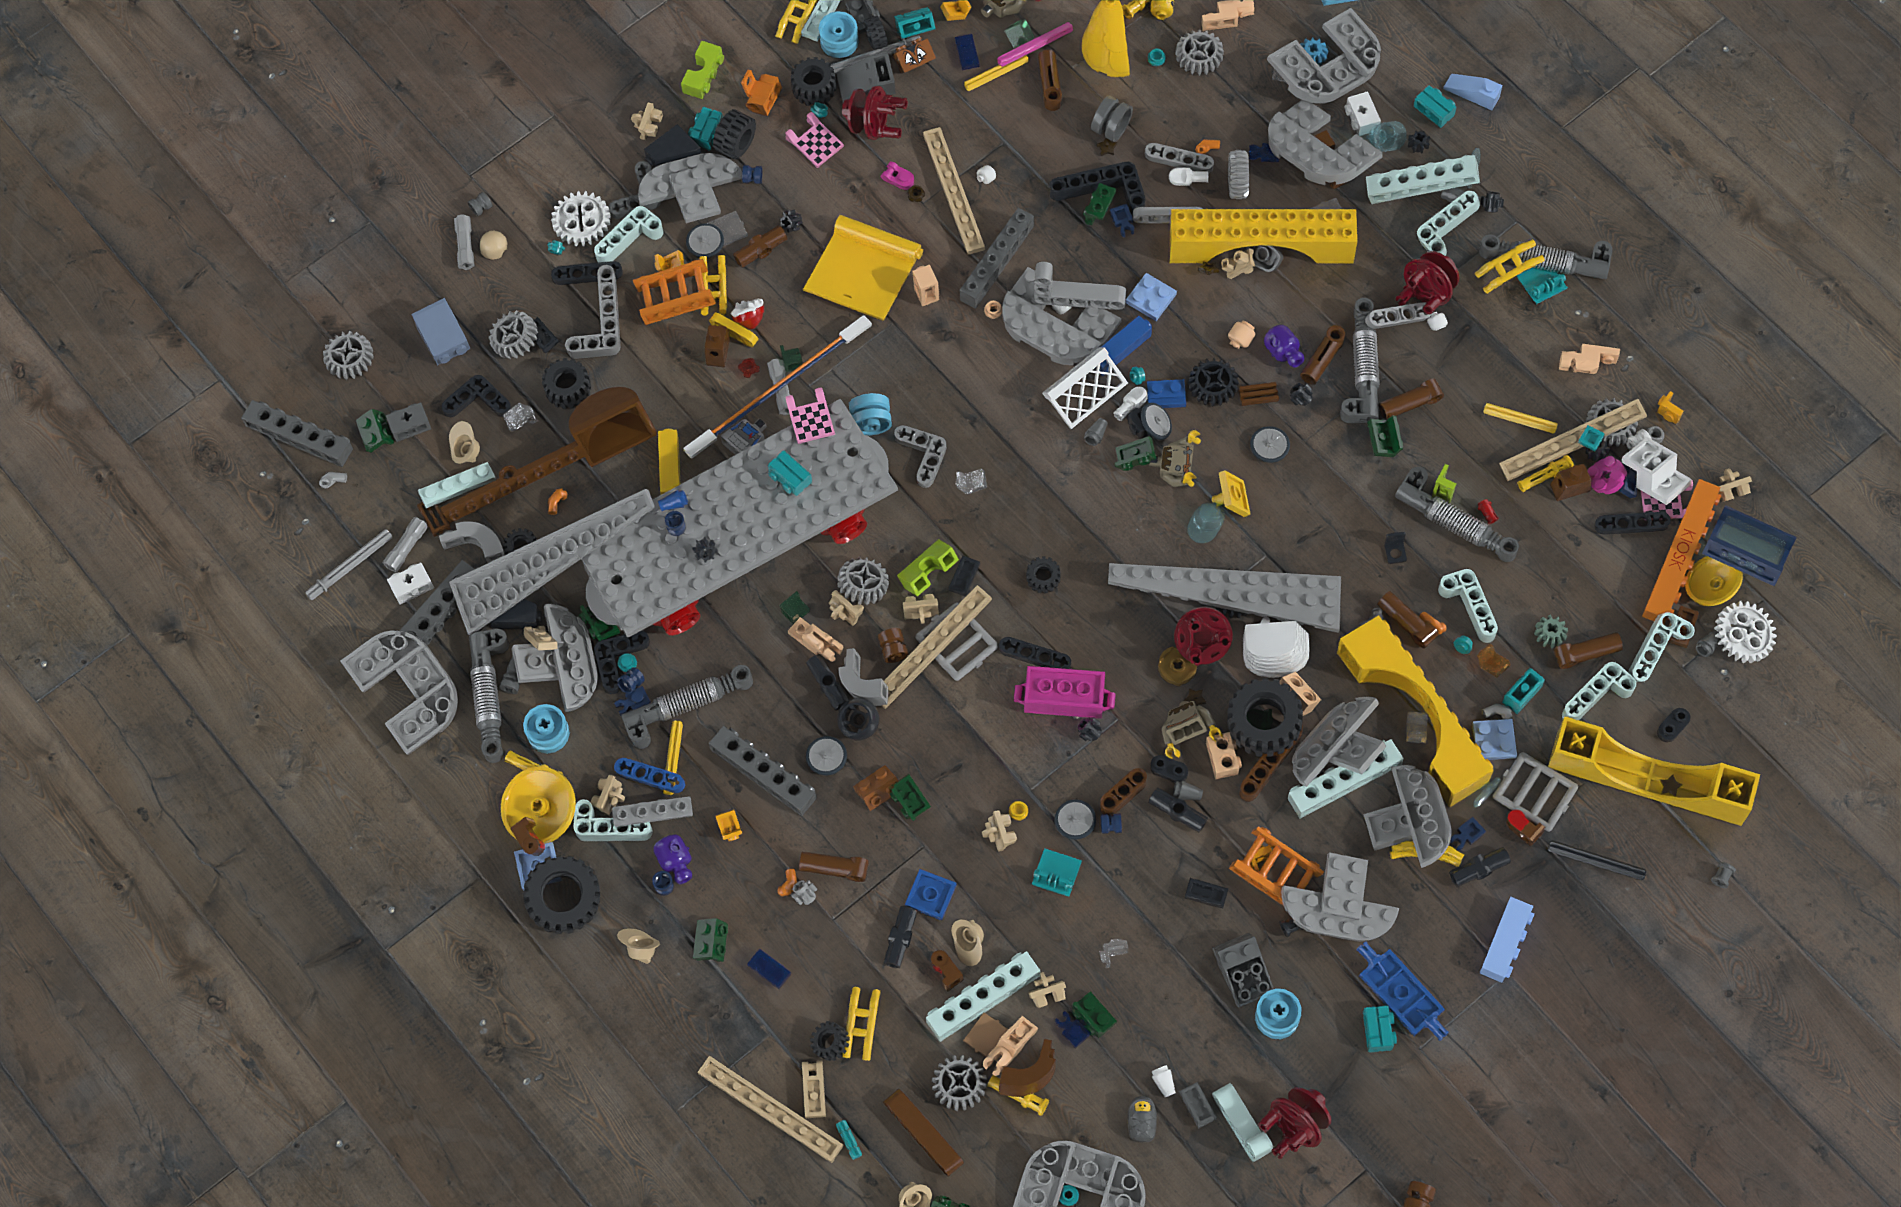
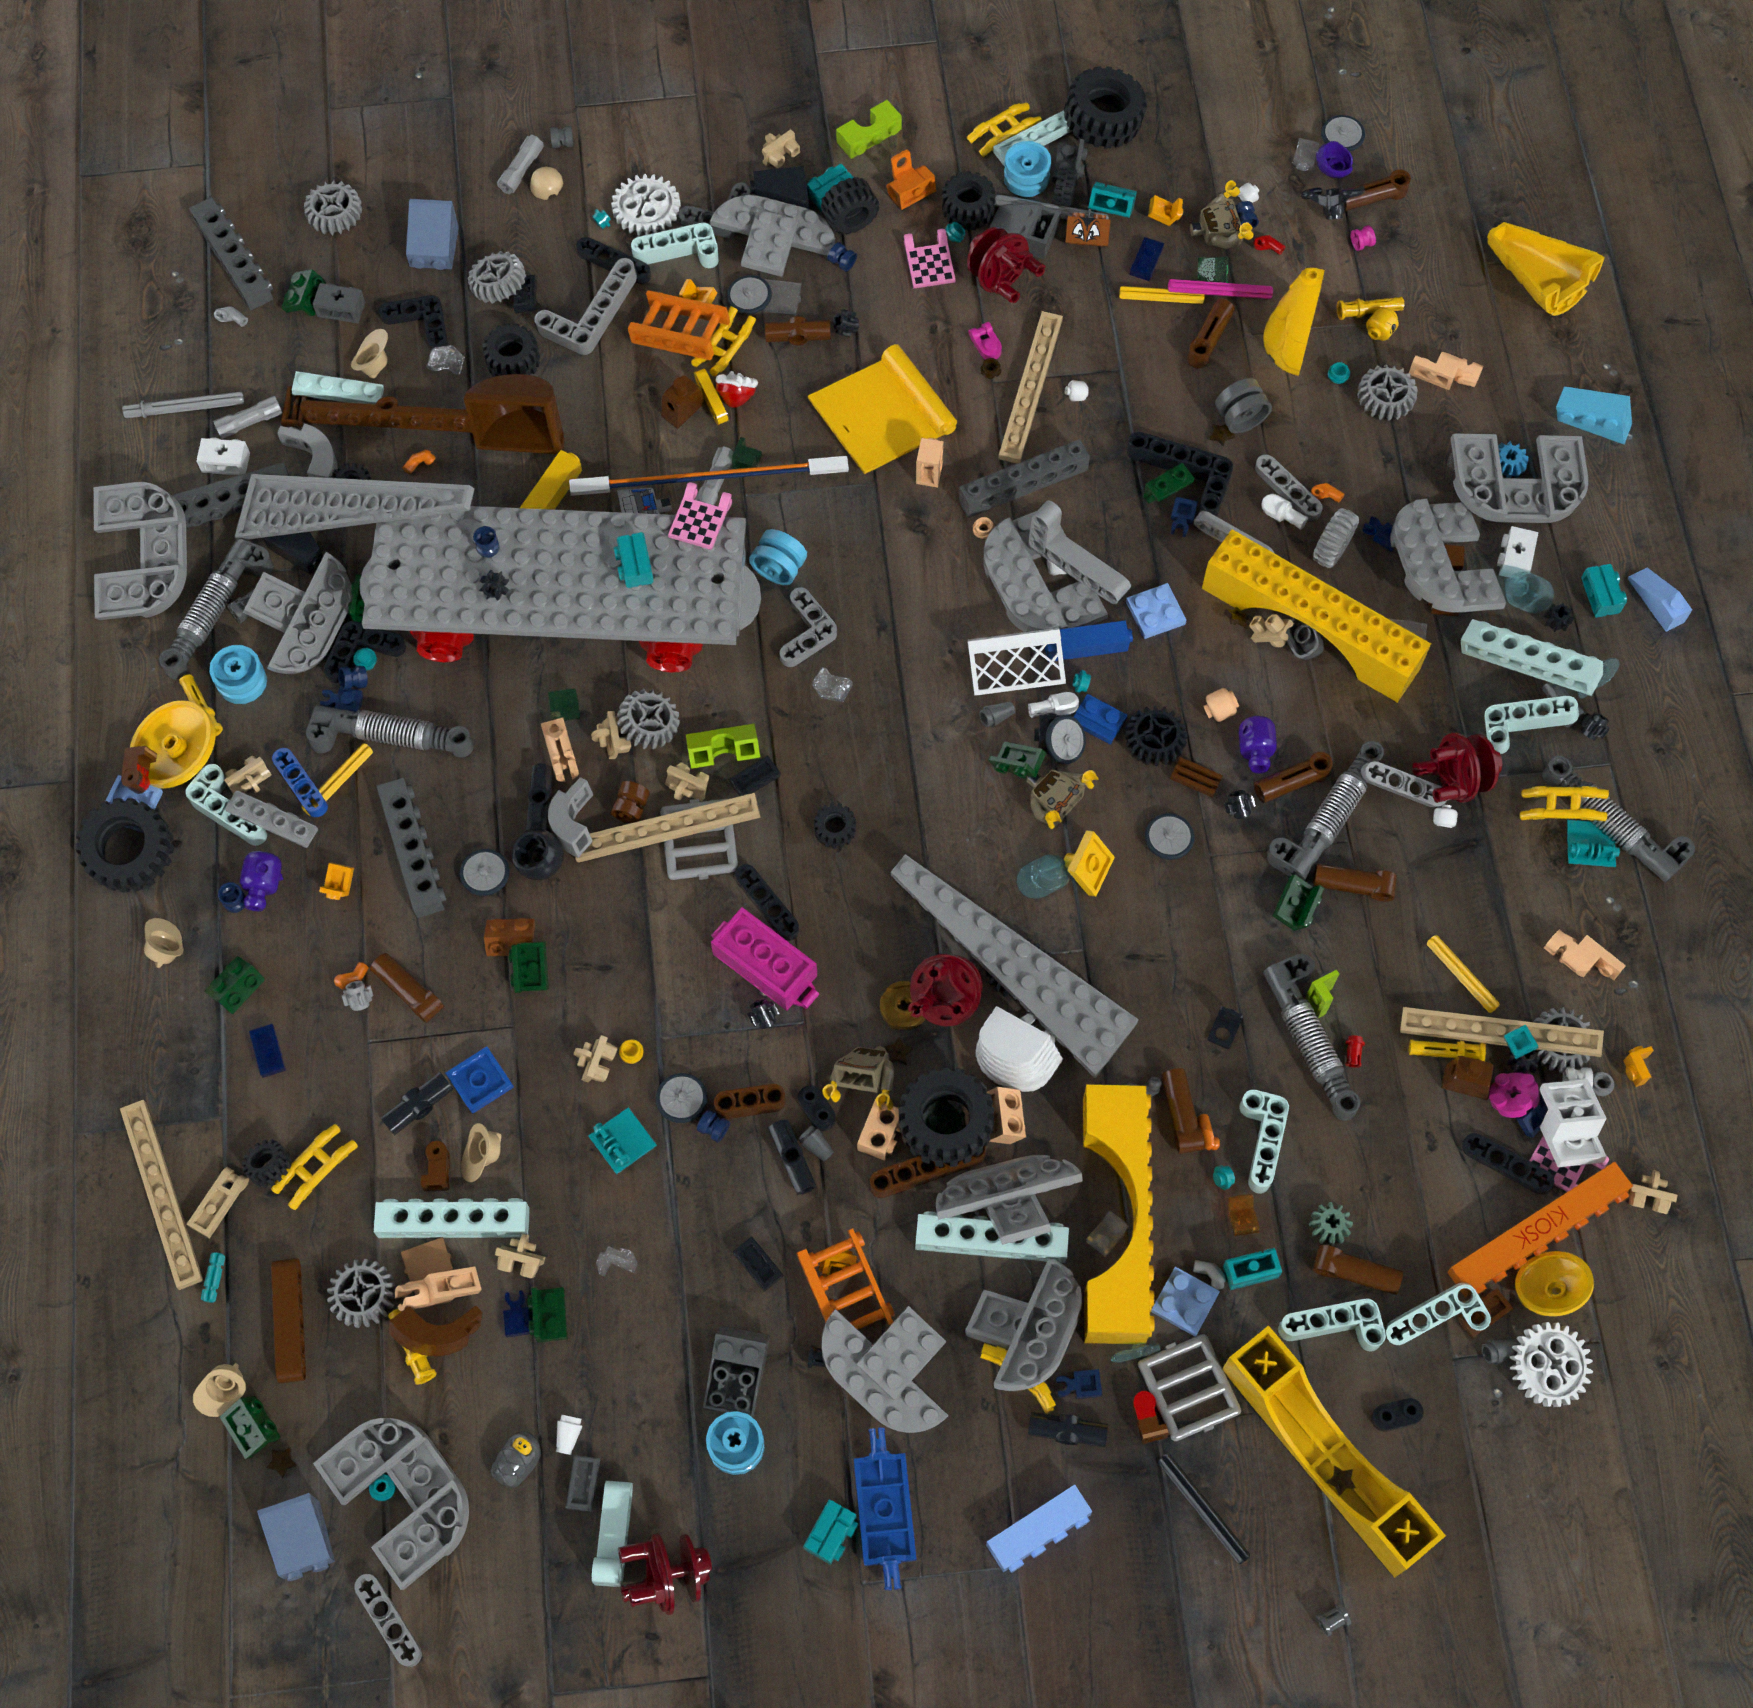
camera: 30 degrees right, 0 degrees up
(540, 638) = (296, 582): tan plate -> none
(673, 501) = (503, 519): blue cone -> none
(748, 363) = (696, 437): clear red plate -> none
(1749, 545) = (1621, 1272): panel -> none

